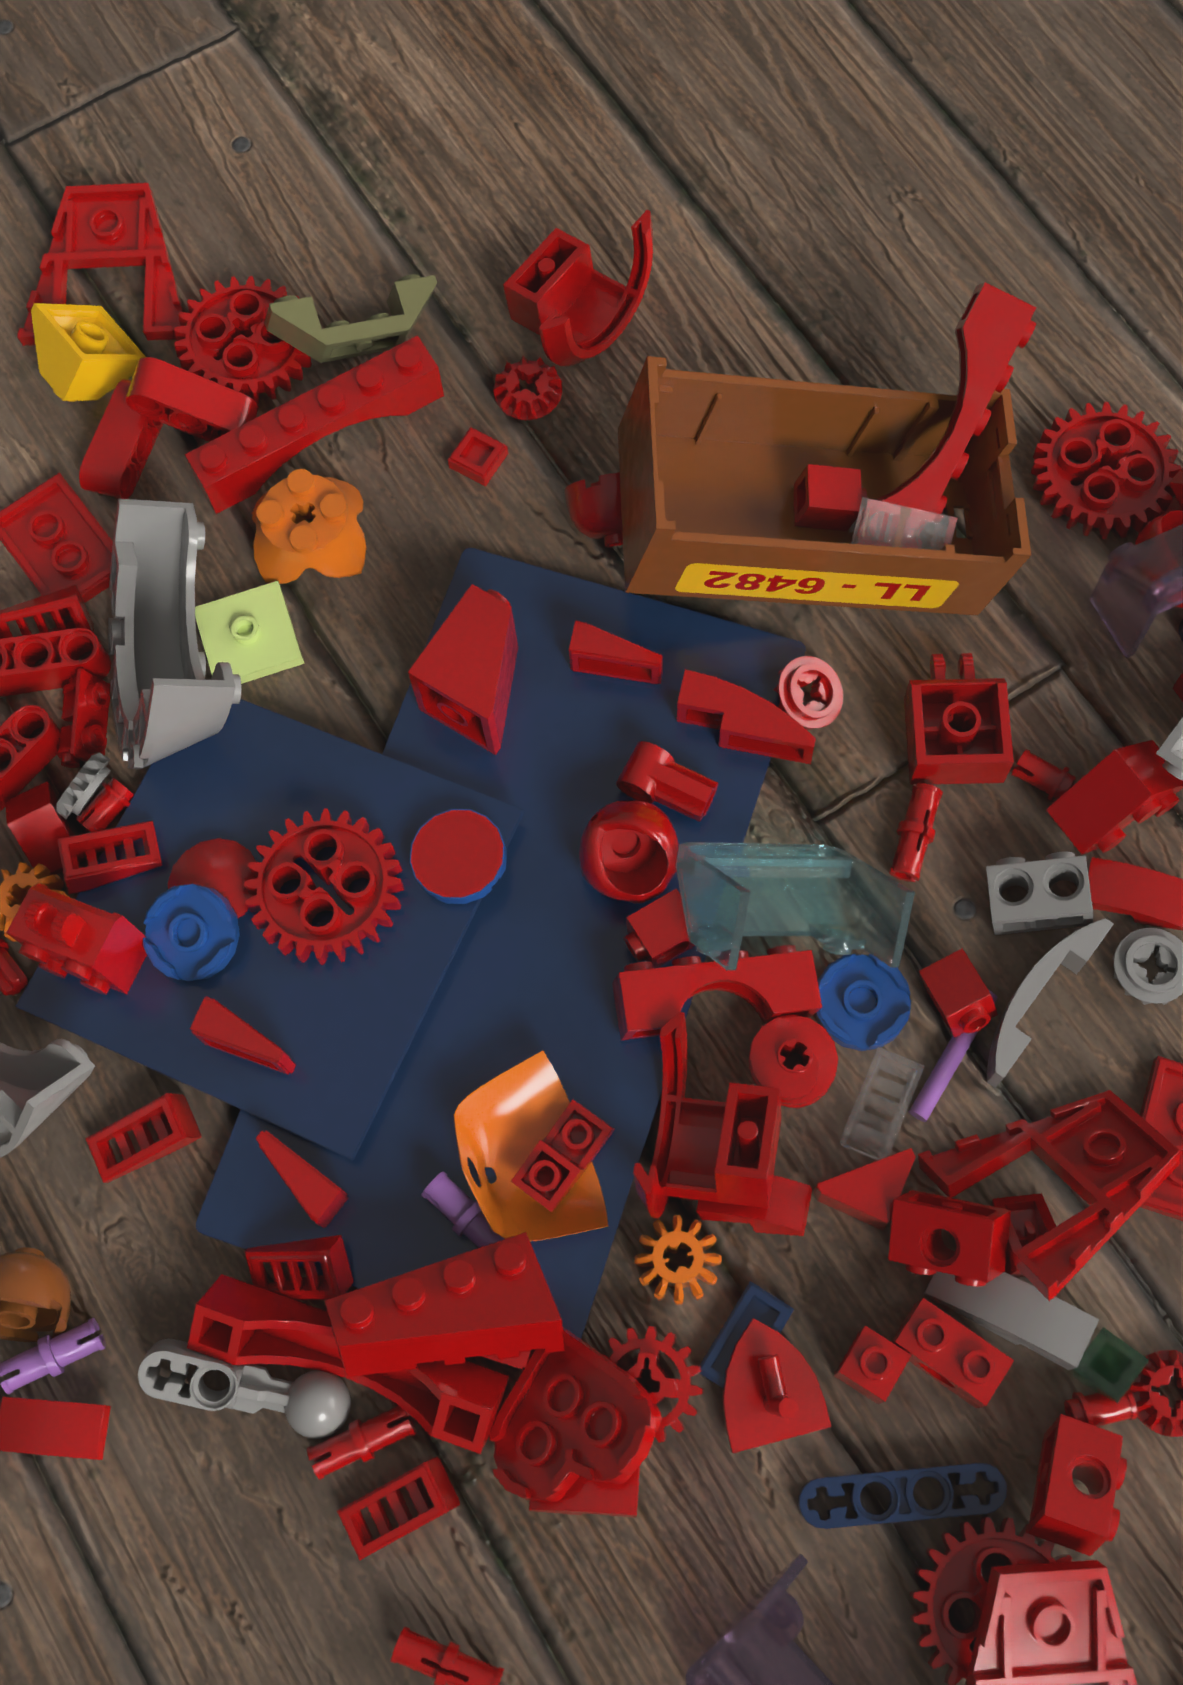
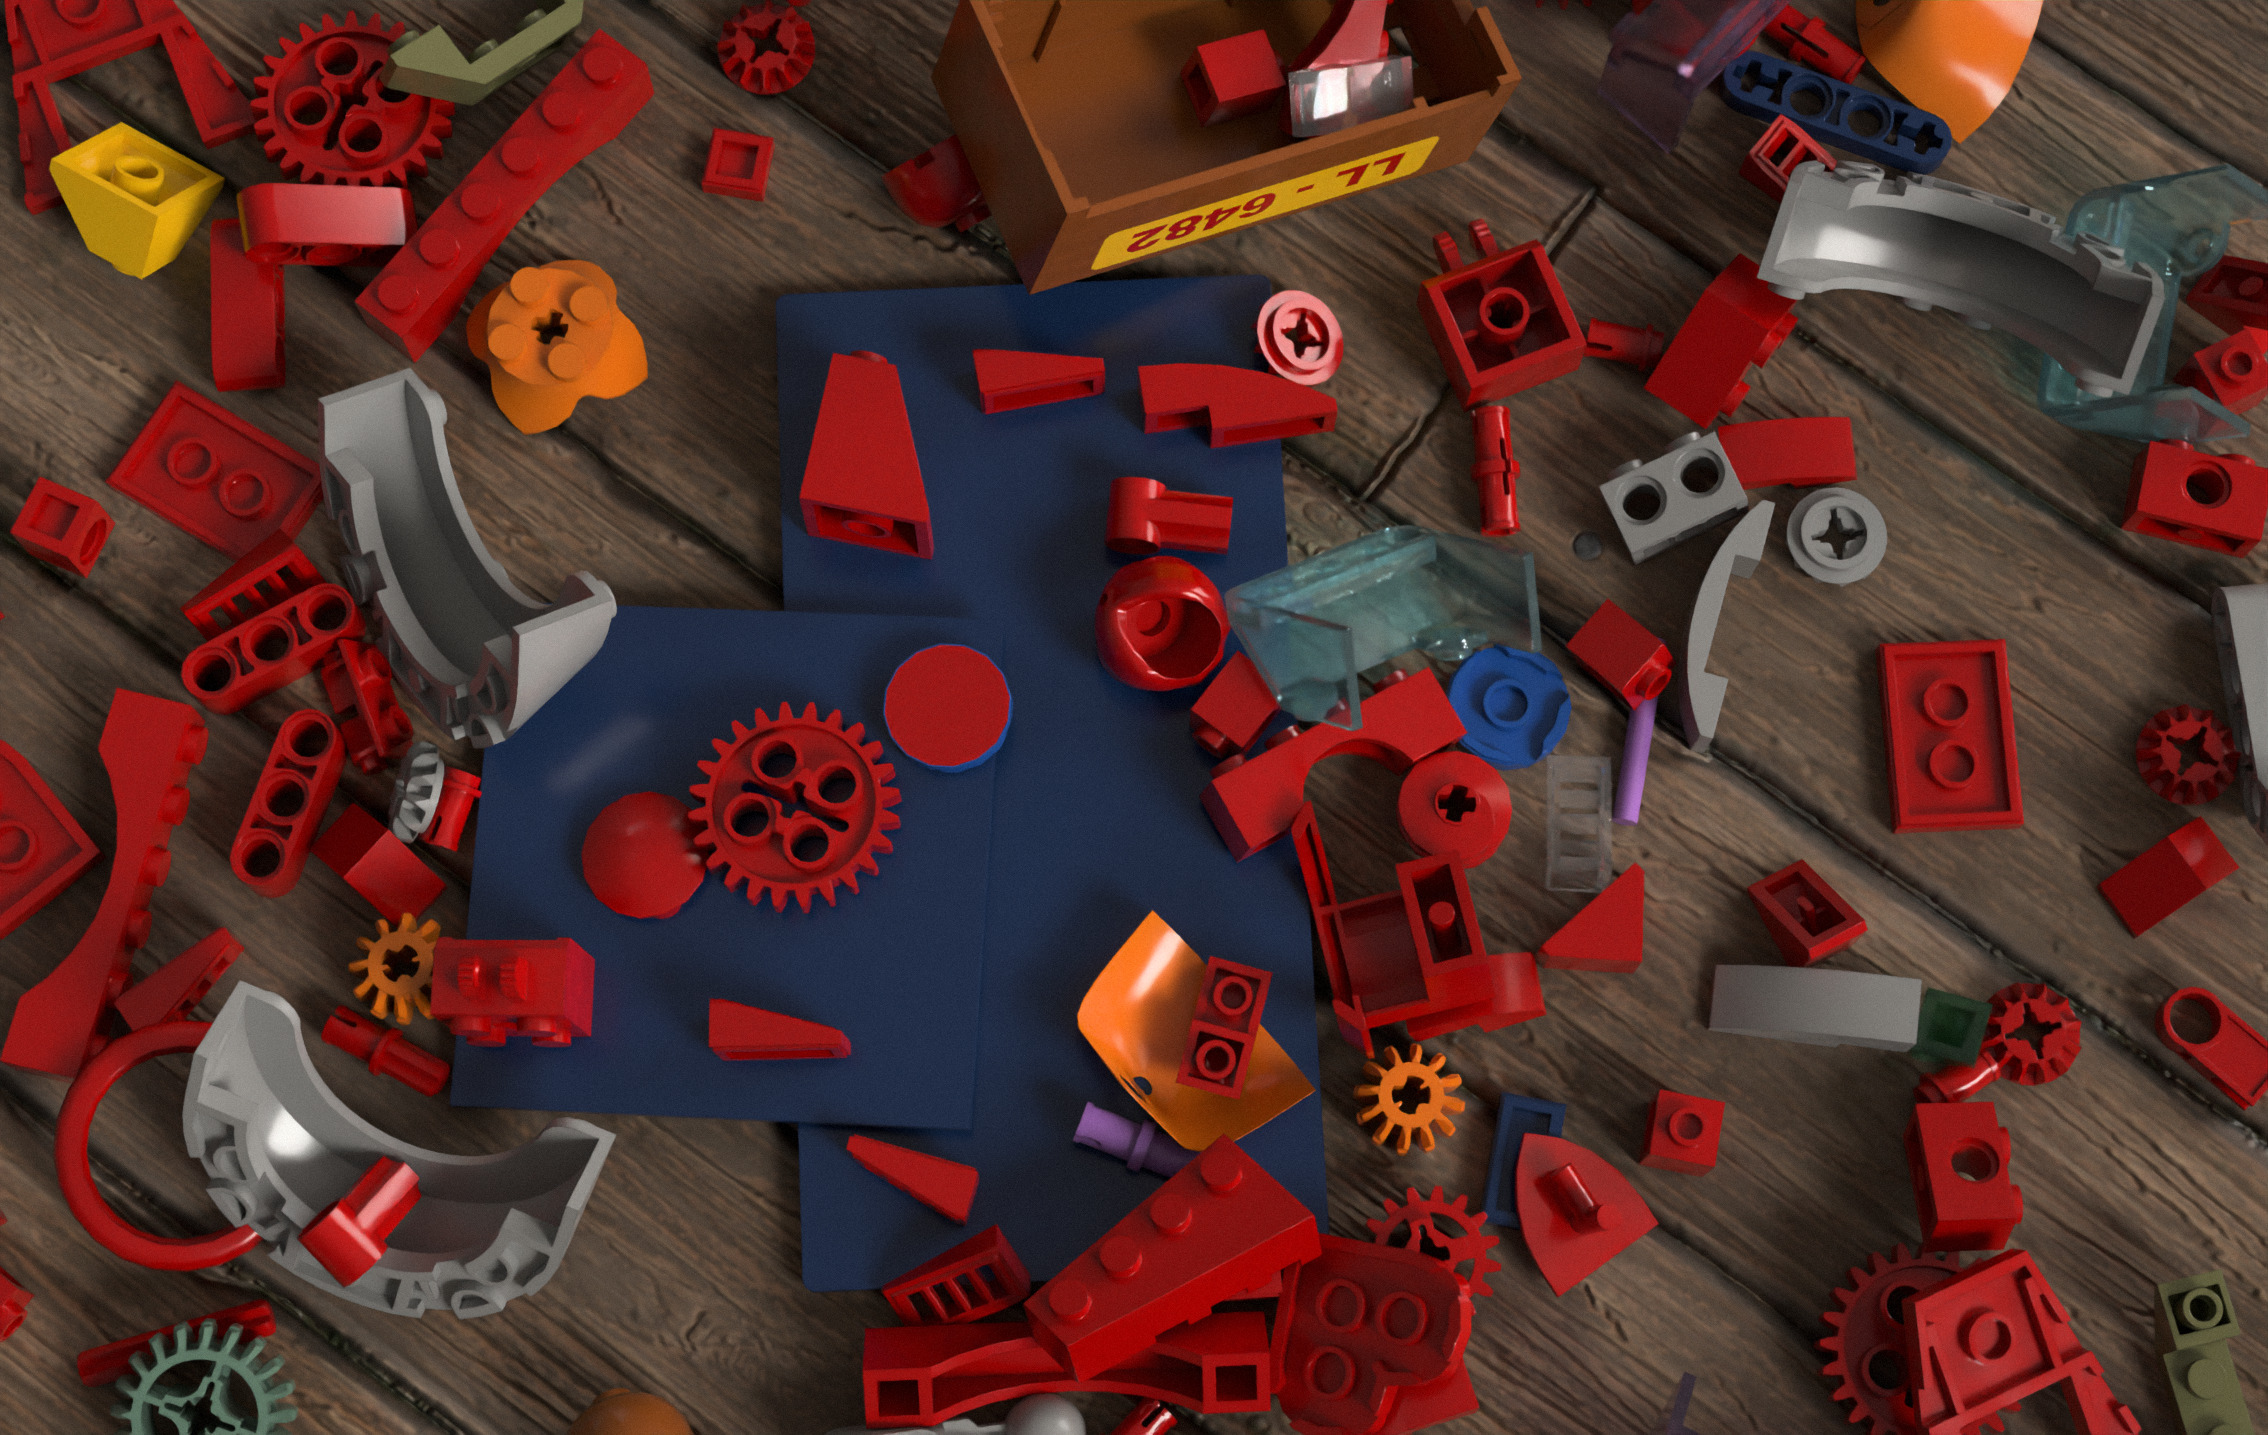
camera: 30 degrees left, 5 degrees up
(97, 874) = (482, 902): red slope -> none
(165, 1110) = (727, 1164): red slope -> none
(191, 932) = (646, 928): blue tile -> none
(250, 632) = (539, 513): yellowish green plate -> none
(902, 1502) = (1770, 1274): dark blue beam -> none
(952, 1353) = (1768, 1084): red brick -> none
(978, 1230) = (1746, 926): red brick -> none
(1096, 1149) = (1847, 783): red wing -> none

